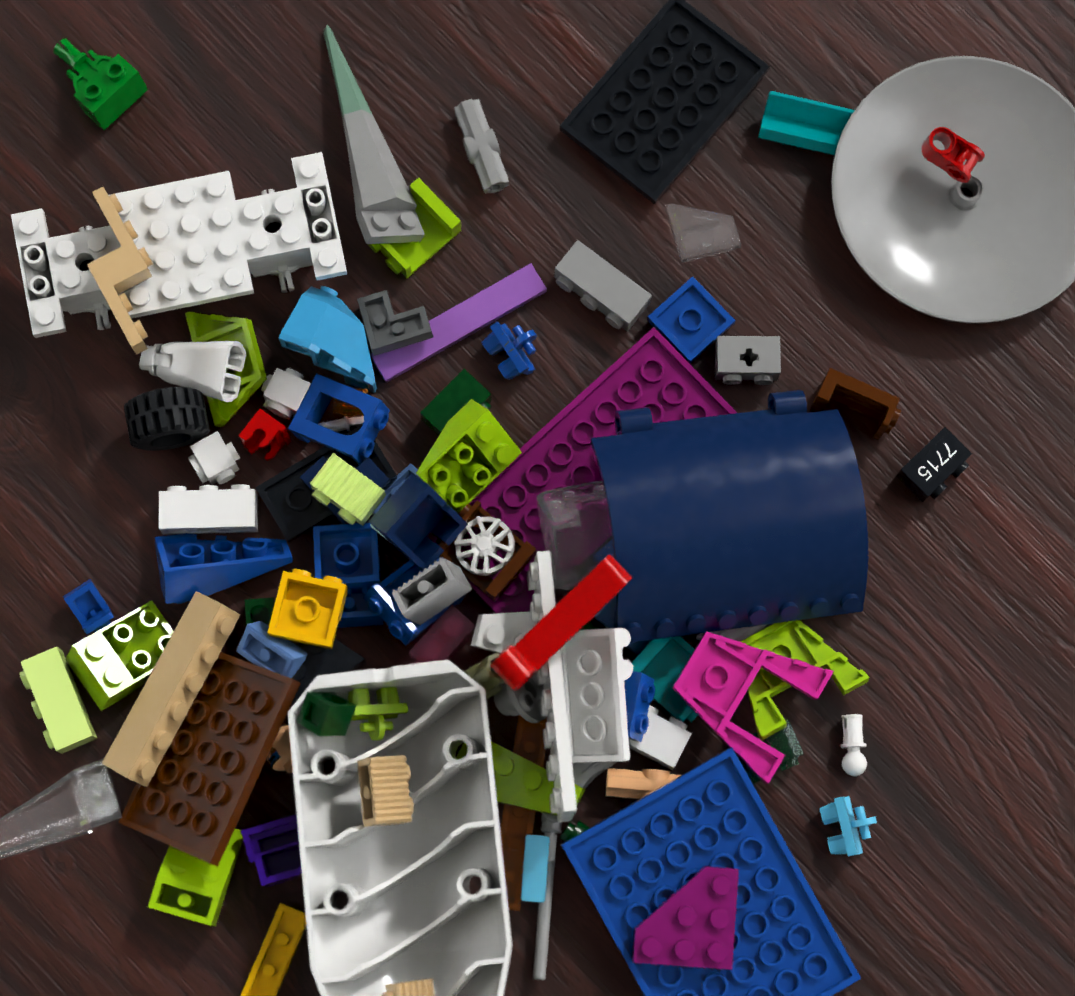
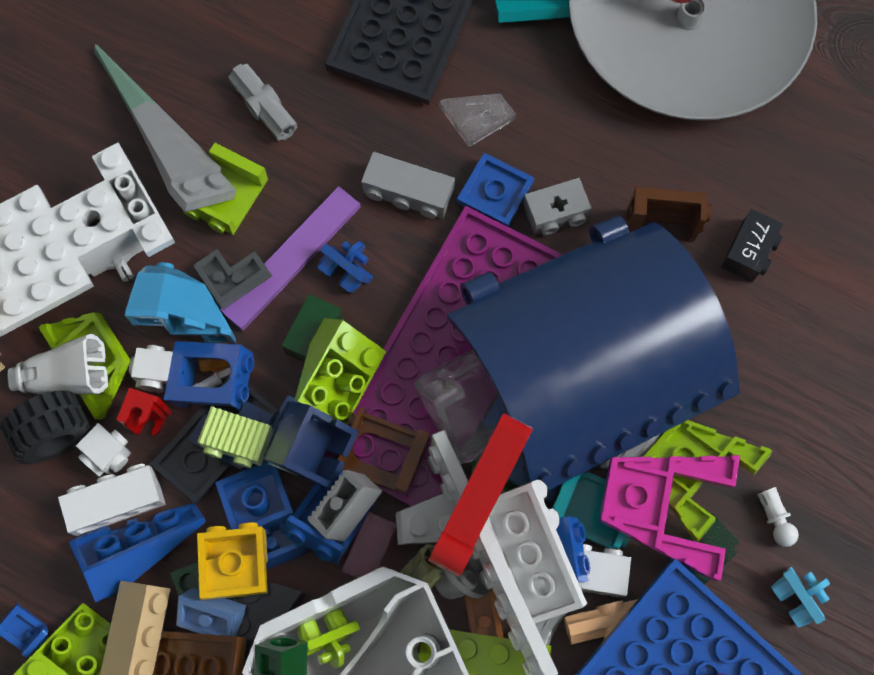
camera: 15 degrees left, 5 degrees down
(485, 546) = (380, 447): white wheel -> none

